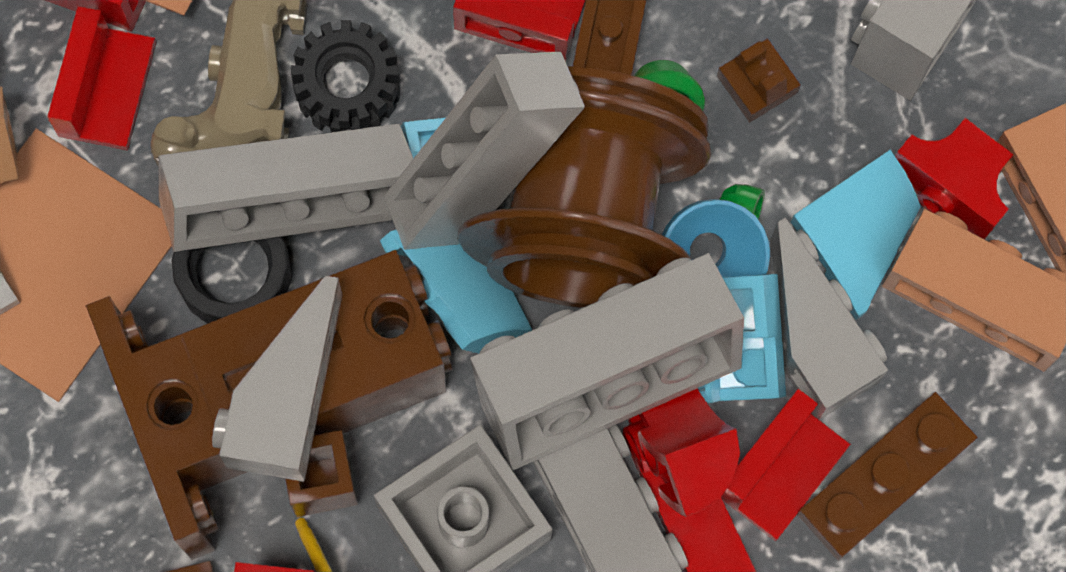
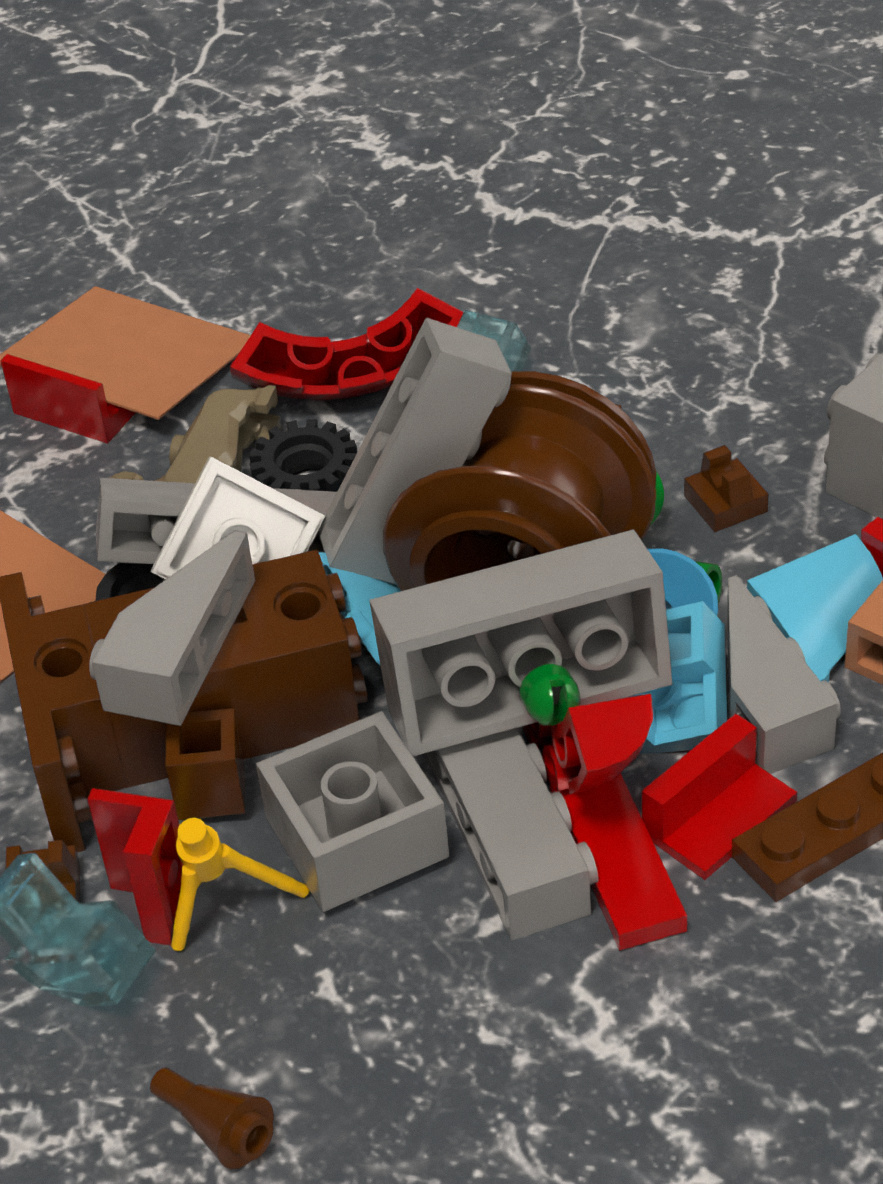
camera: 15 degrees right, 30 degrees down
(100, 82) = (61, 467): red panel -> none
(308, 221) = (231, 502): none -> white tile
(640, 417) = (538, 695): none -> green hinge

